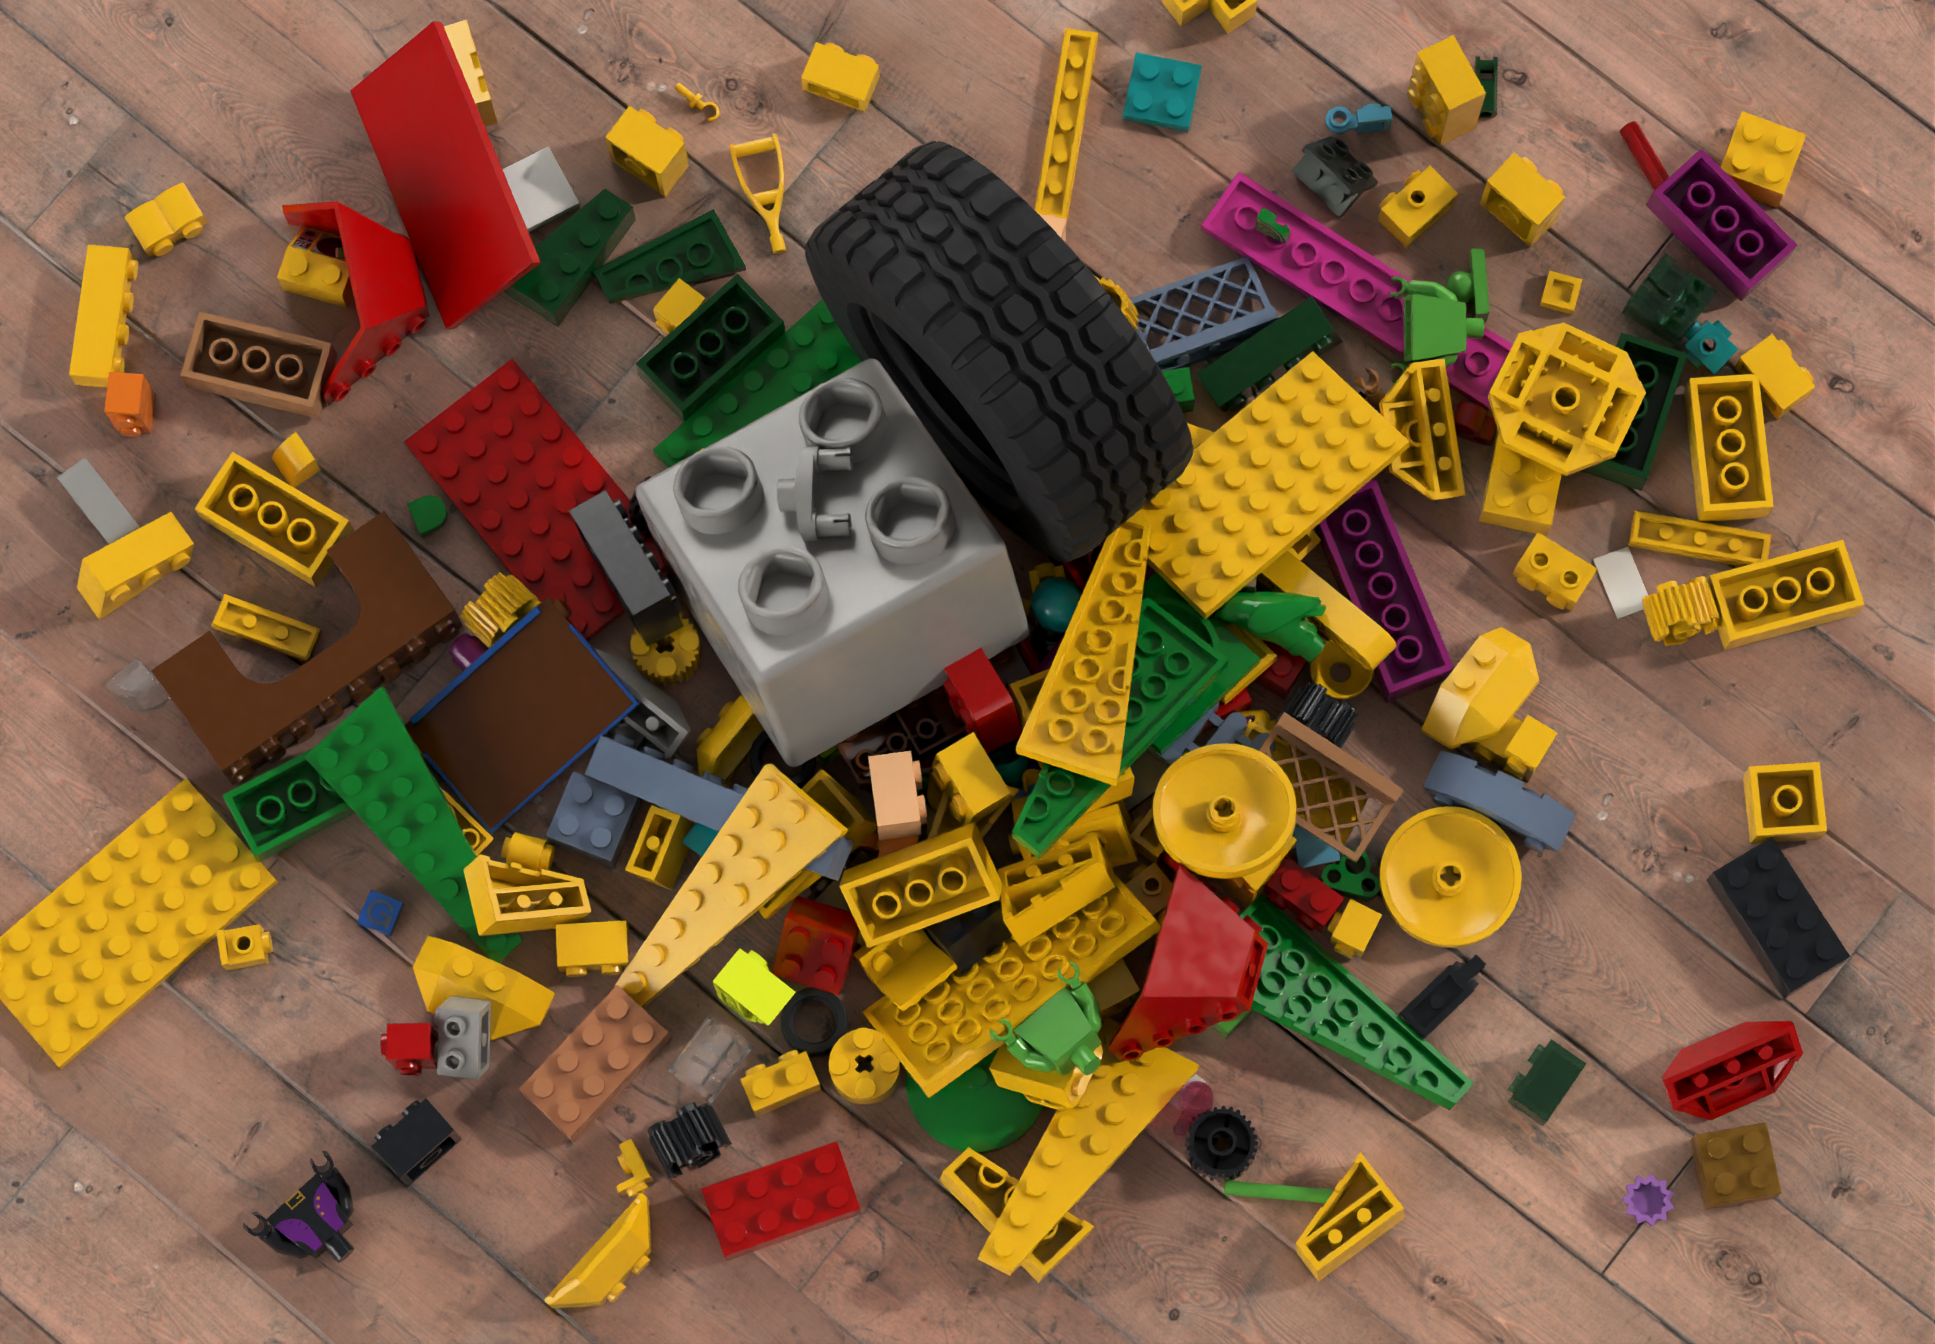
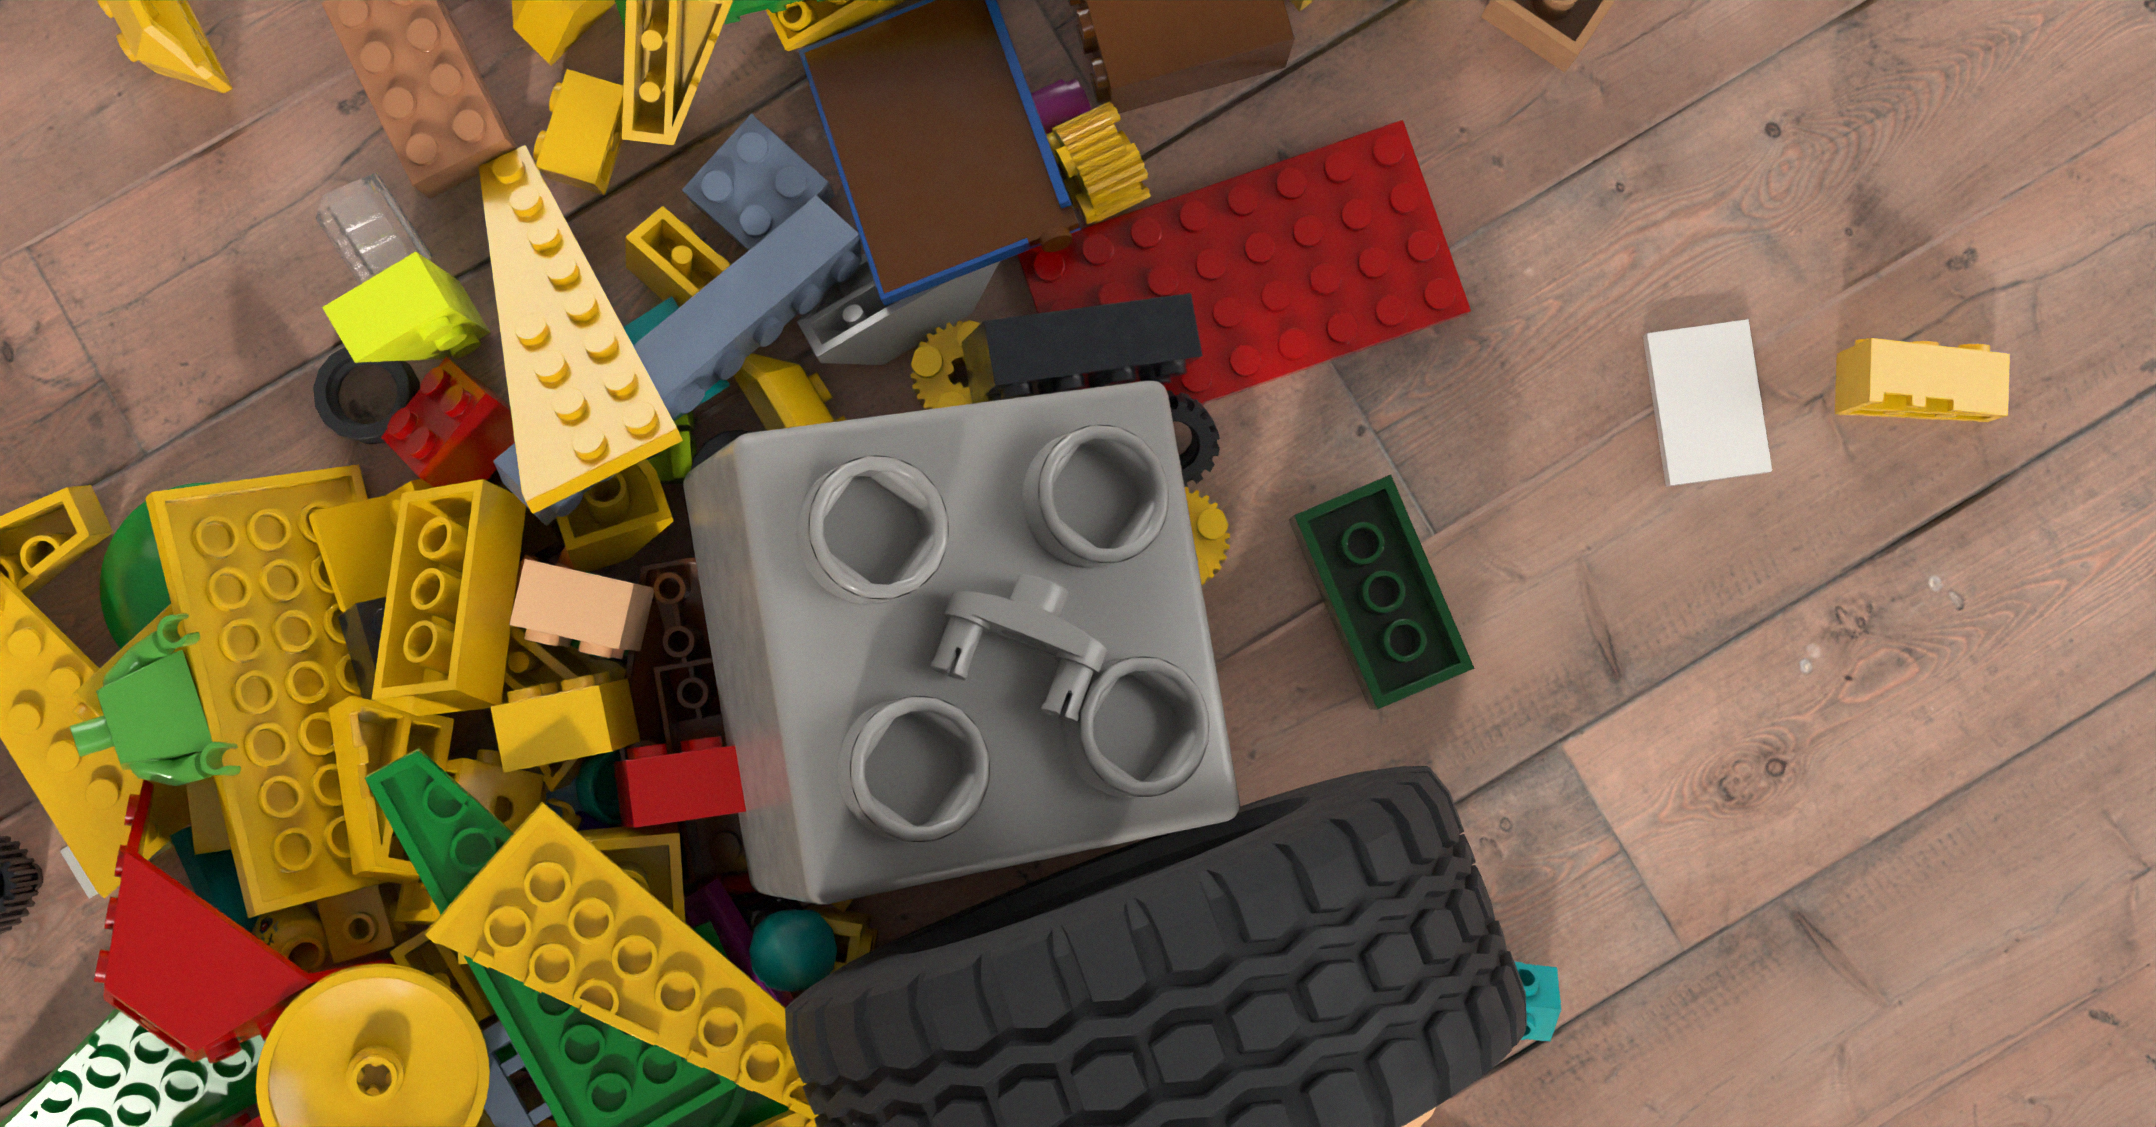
camera: 110 degrees right, 10 degrees up
(316, 268) = (1706, 93): yellow slope -> none
(383, 284) = (1638, 154): red piece -> none
(428, 514) = (1286, 119): green tile -> none
(444, 175) = (1778, 301): red tile -> none
(529, 851) = (748, 88): yellow brick -> none
(572, 255) = (1590, 442): dark green wedge -> none
(632, 1162) = (268, 86): yellow bracket -> none
(647, 150) = (1713, 607): yellow brick -> none
(676, 306) = (1460, 569): yellow brick -> none
(689, 1139) = (261, 163): black brick -> none
(690, 252) = (1536, 597): dark green wing -> none
(695, 100) = (1767, 706): yellow hand -> none
(767, 197) = (1584, 752): yellow piece -> none
(780, 1083) = (292, 320): yellow brick -> none
(781, 1201) = (137, 260): red brick -> none
(790, 367) = (1299, 678): green wing -> none
(840, 76) = (1731, 929): yellow brick -> none
(864, 1087) = (248, 425): yellow brick -> none
(1192, 1100) = (51, 872): clear pink piece -> none

